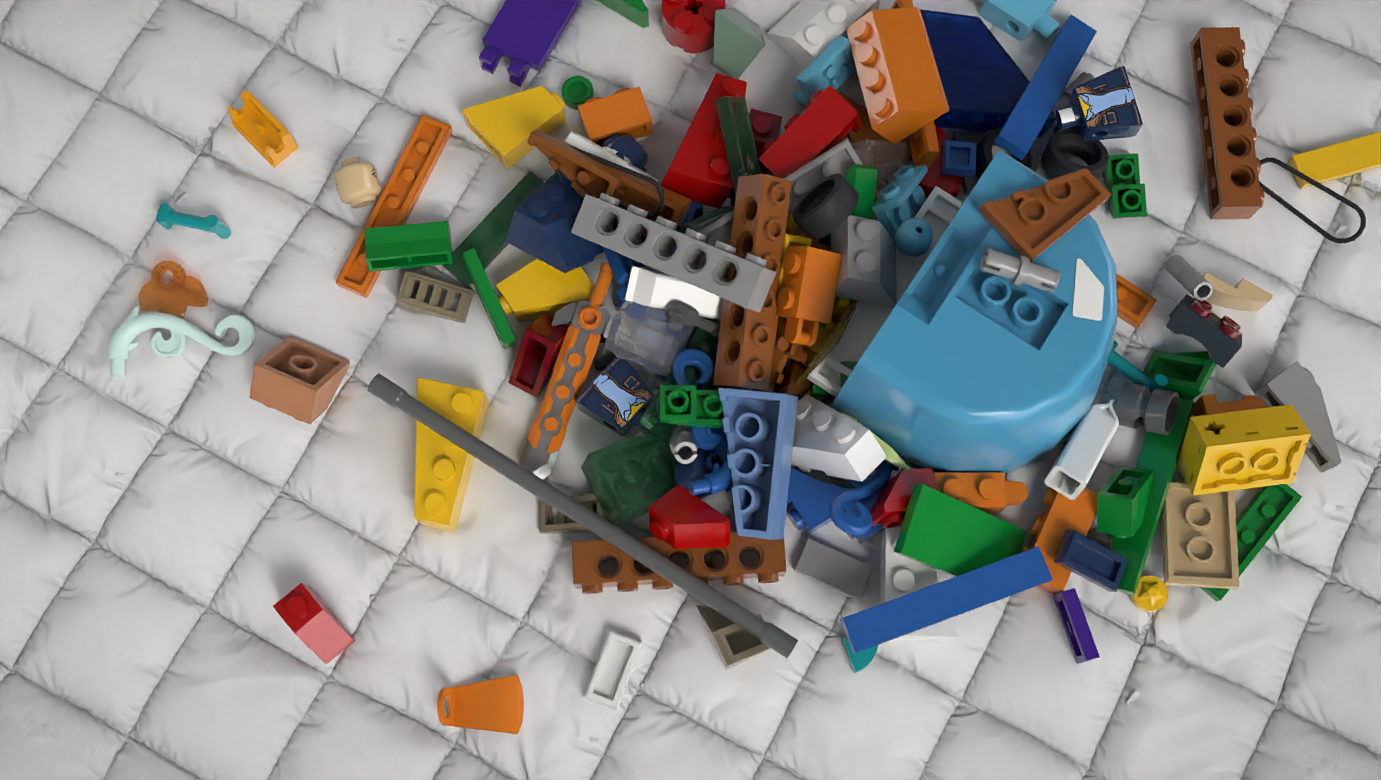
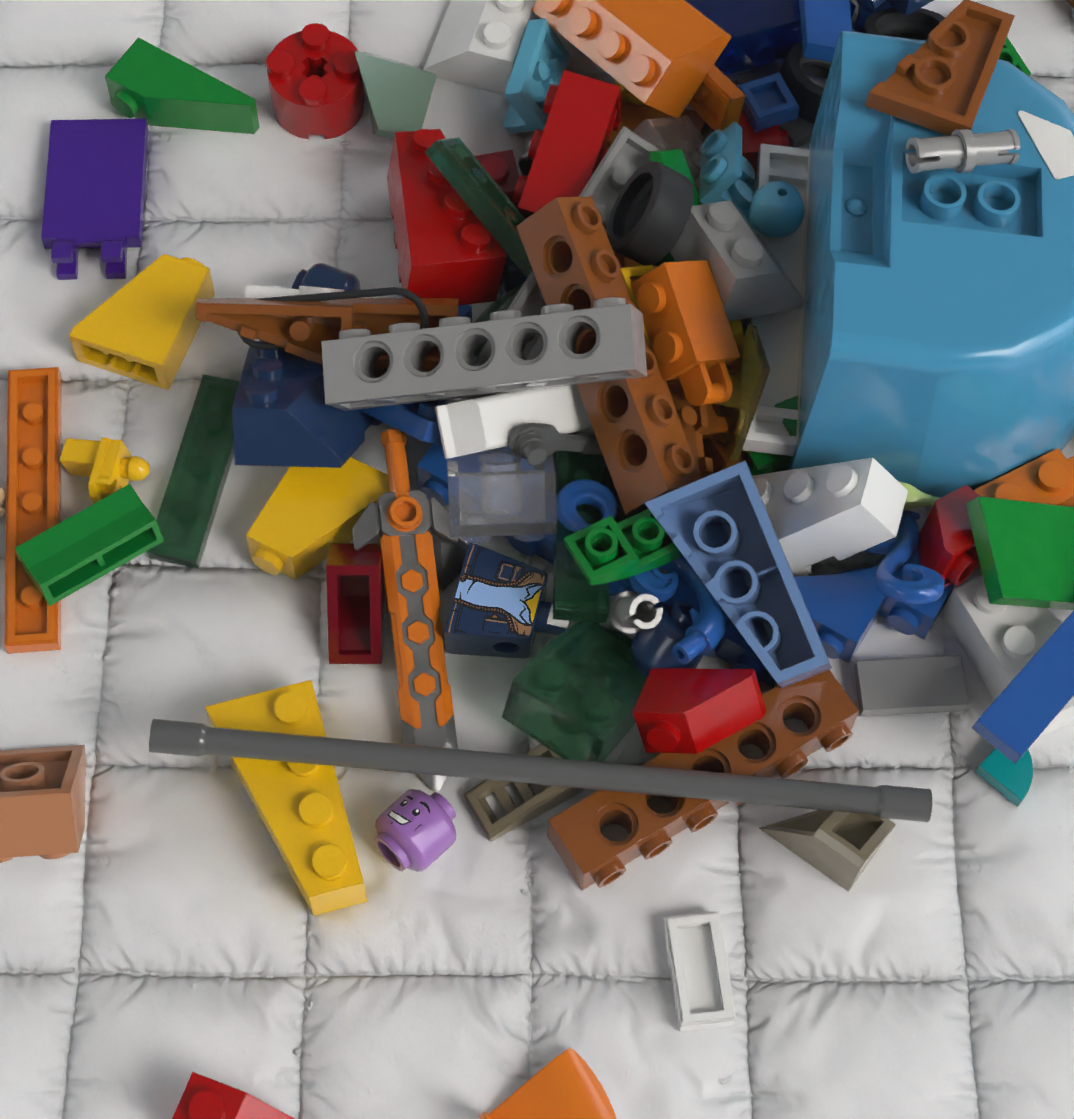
camera: 30 degrees left, 10 degrees down
(424, 283) = (144, 584): dark tan slope -> none
(446, 203) = (105, 462): none -> yellow piece
(488, 299) = (244, 560): green tile -> none
(498, 507) = (415, 830): none -> medium lavender head
(577, 91) = (213, 248): green tile -> none
(616, 114) = (287, 244): orange brick -> none

